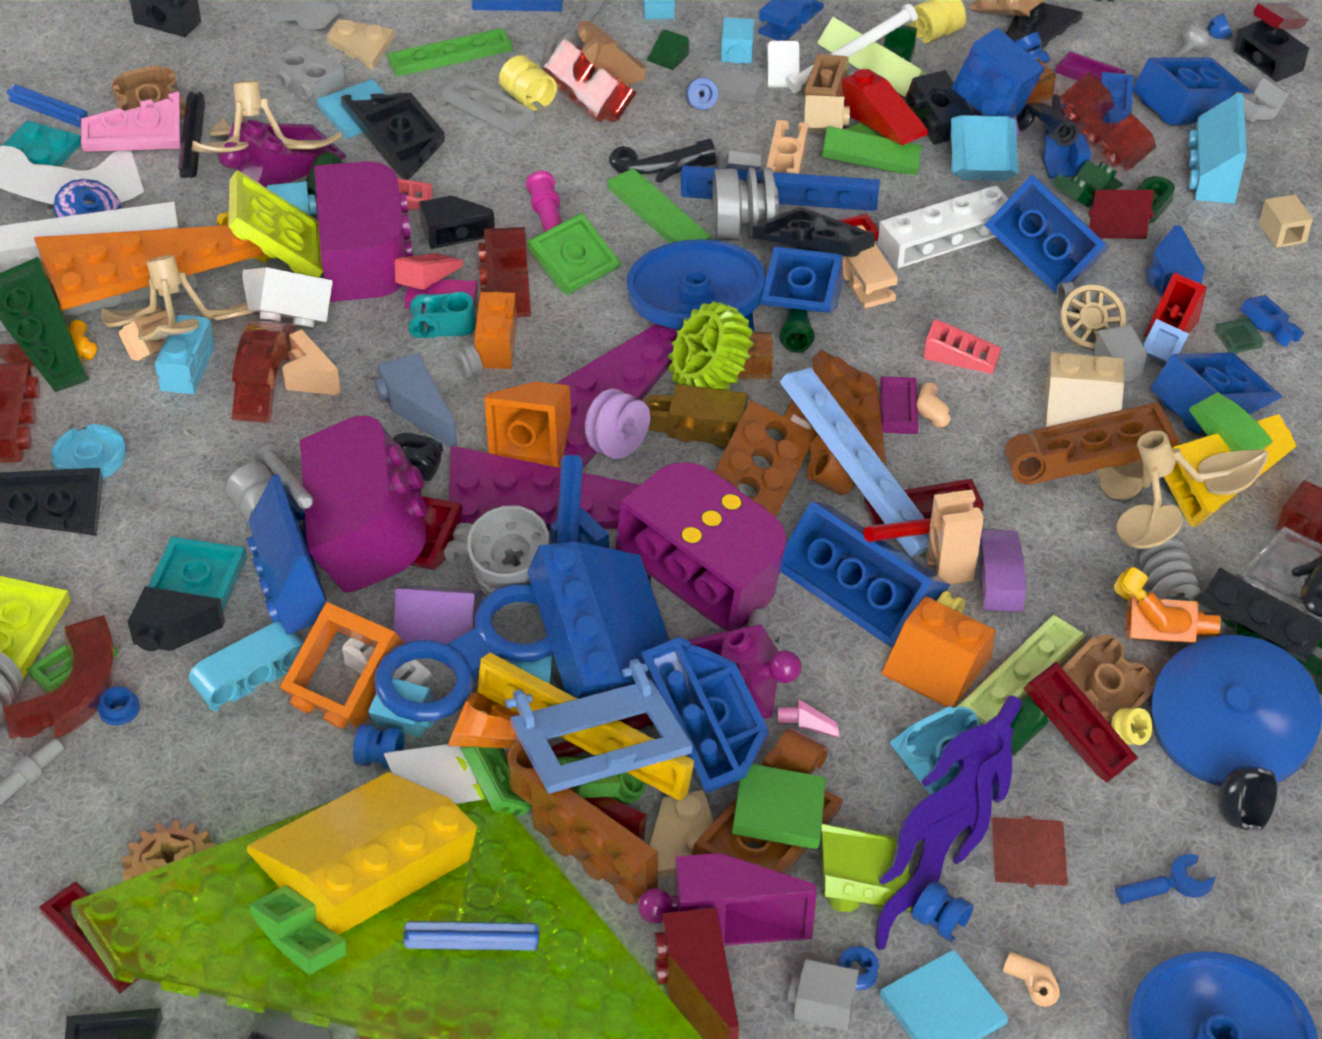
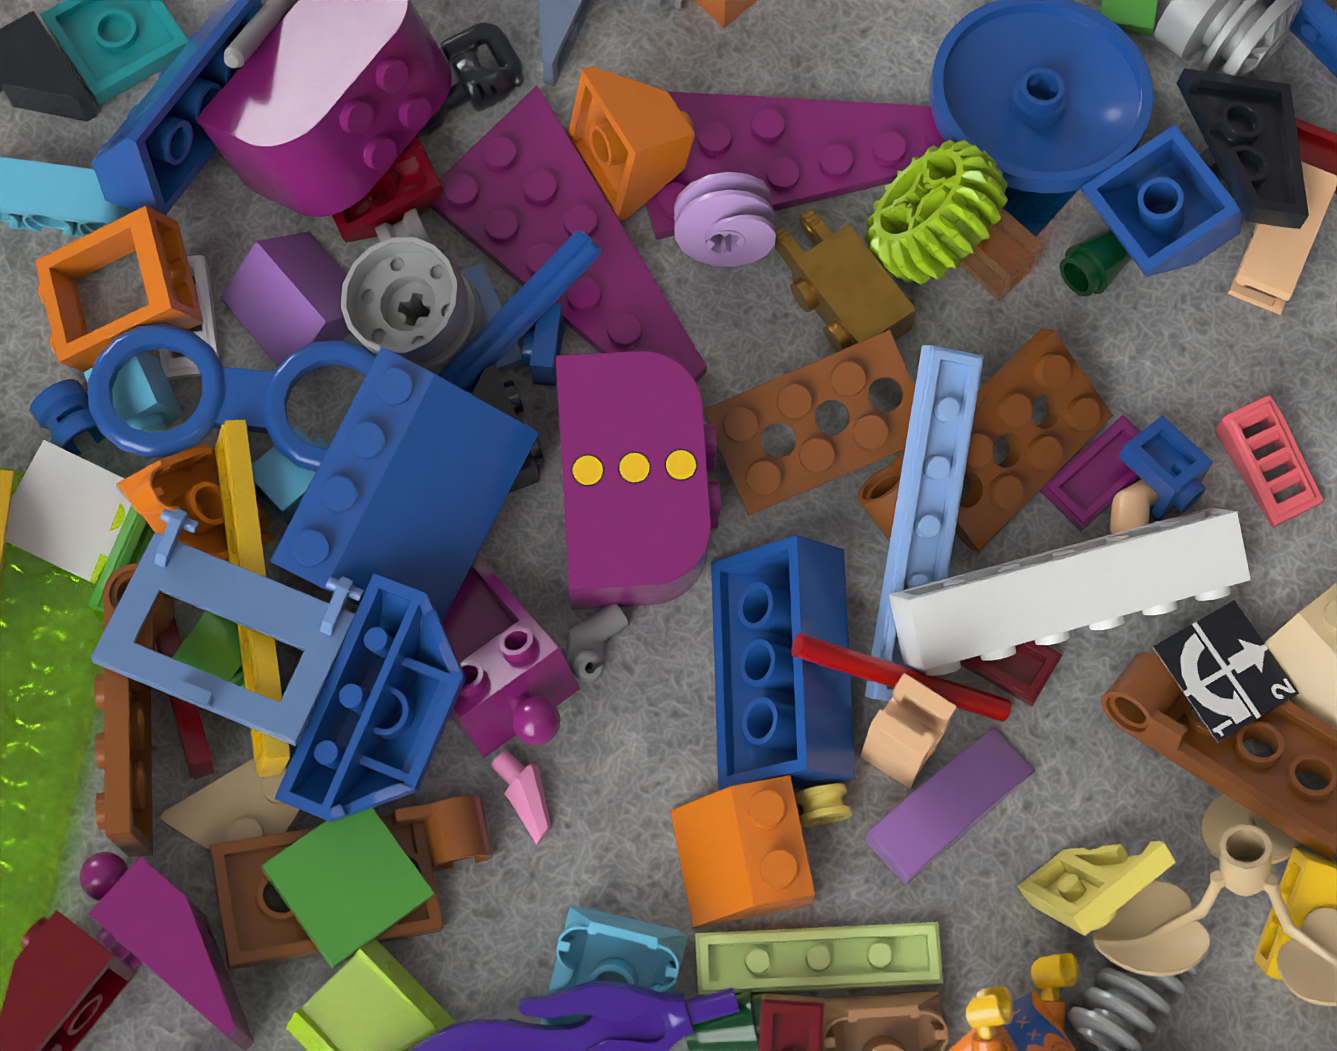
camera: 45 degrees right, 25 degrees up
(927, 371) = (1168, 465): none -> blue bracket
(947, 441) = (1069, 589): none -> white brick
(1048, 422) = (1225, 670): none -> black sticker
(1100, 536) = (1090, 885): none -> light yellow wing

